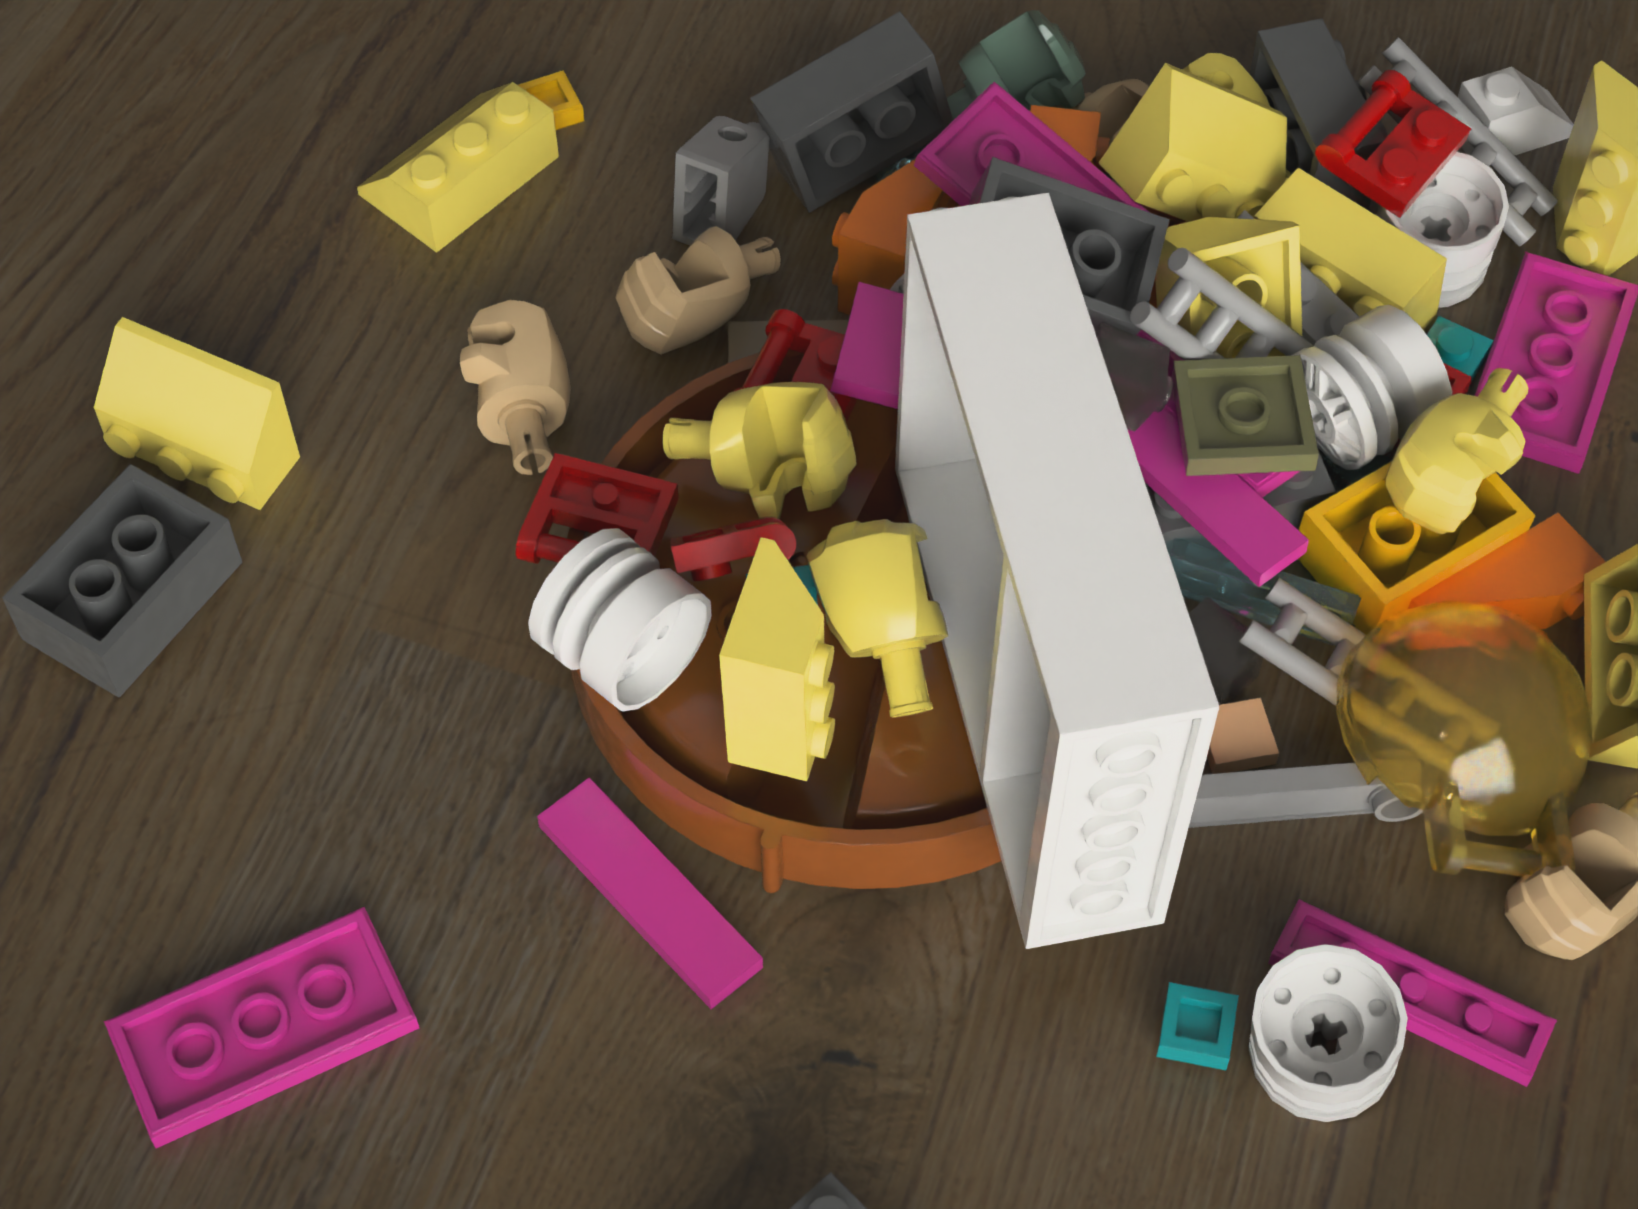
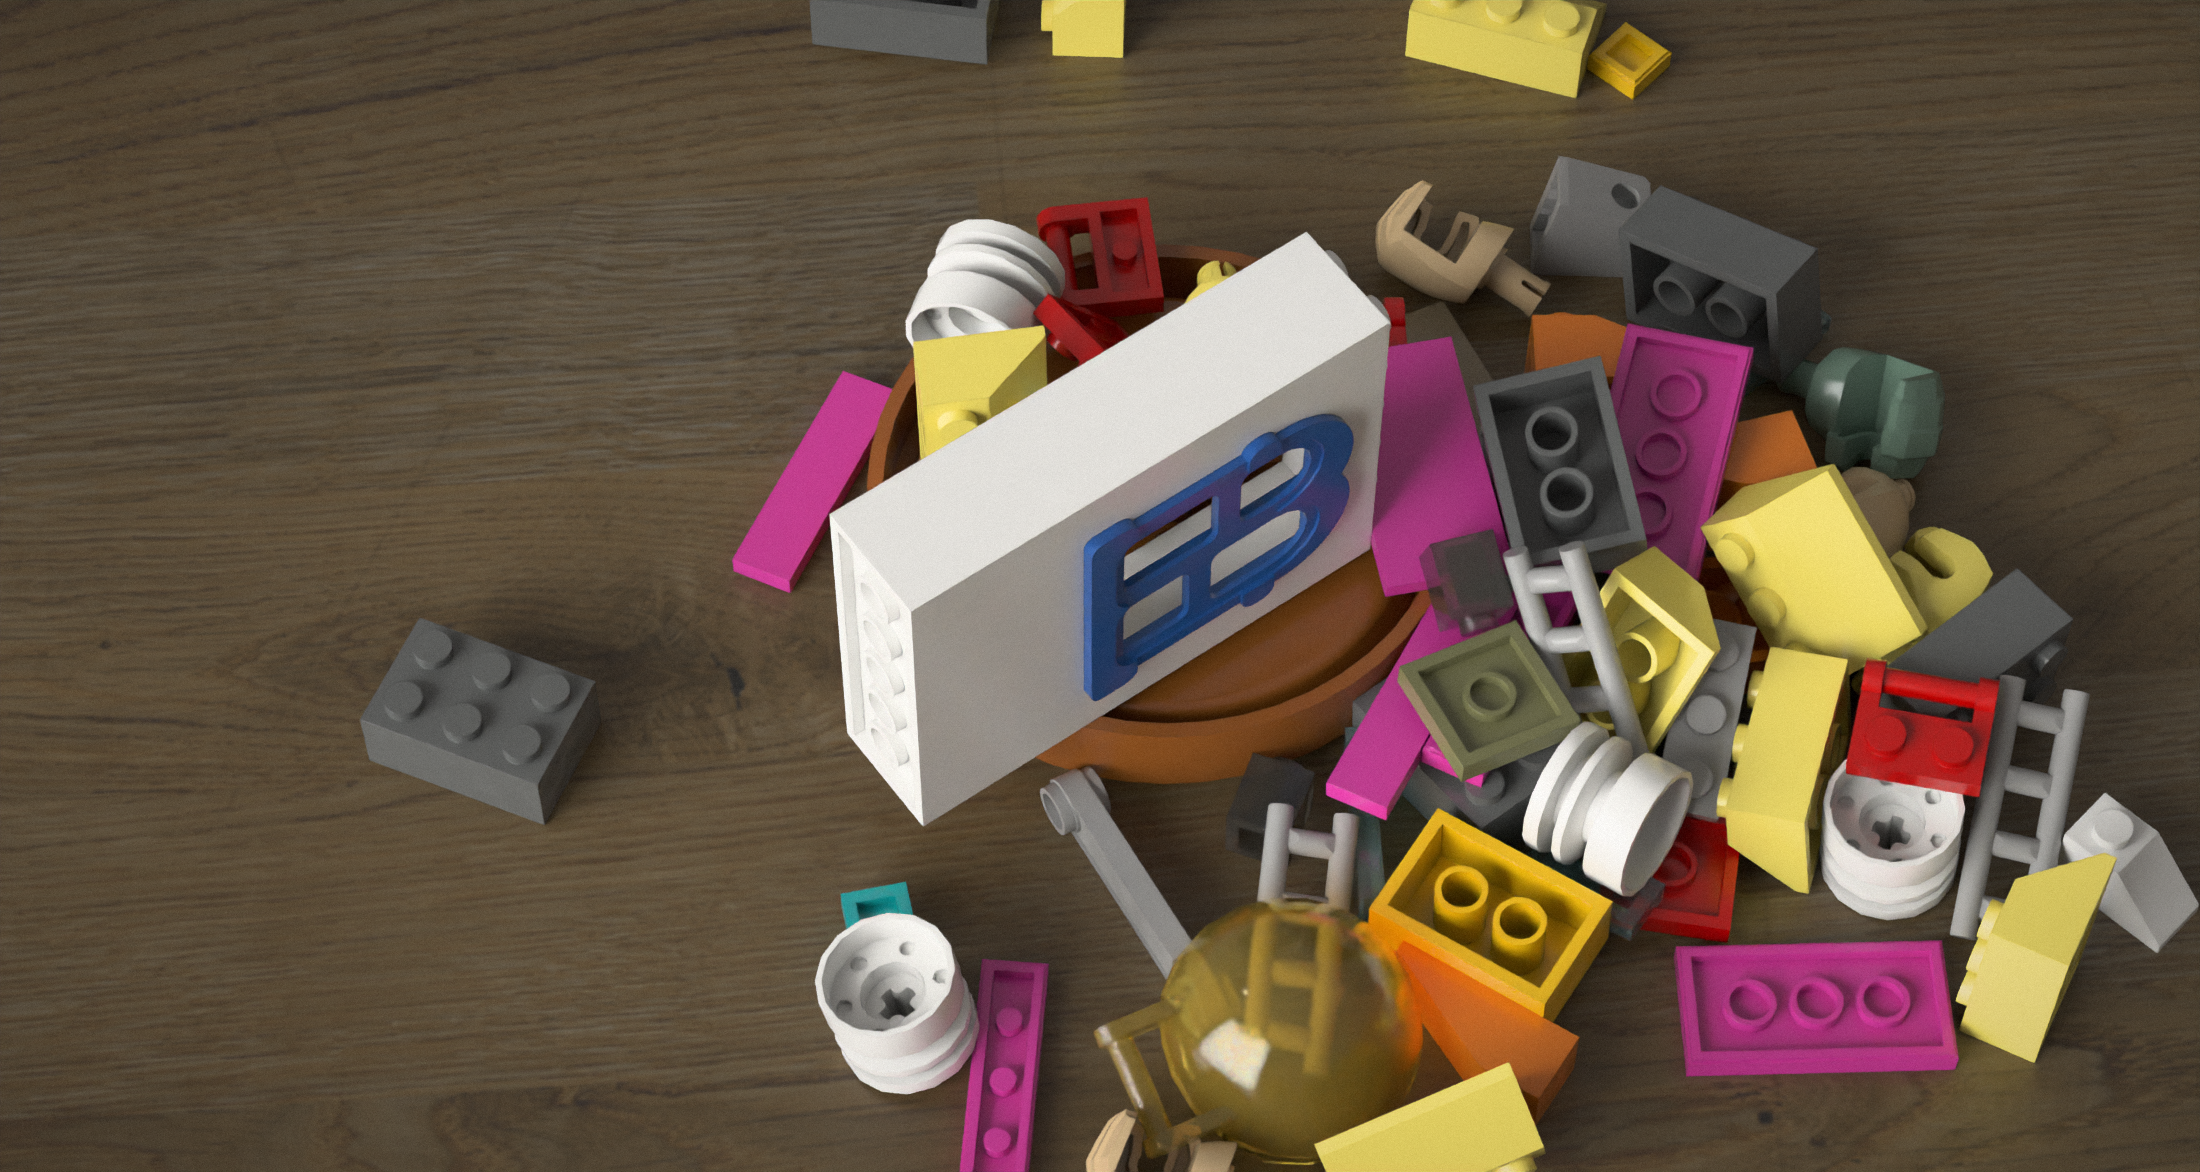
camera: 65 degrees right, 0 degrees up
(260, 1026) = (570, 274): dark pink tile -> none
(519, 378) = (1264, 169): tan piece -> none
(1241, 738) = (1202, 865): light nougat tile -> none
(1453, 450) = (1561, 881): light yellow piece -> none
(1459, 346) = (1766, 912): teal plate -> none

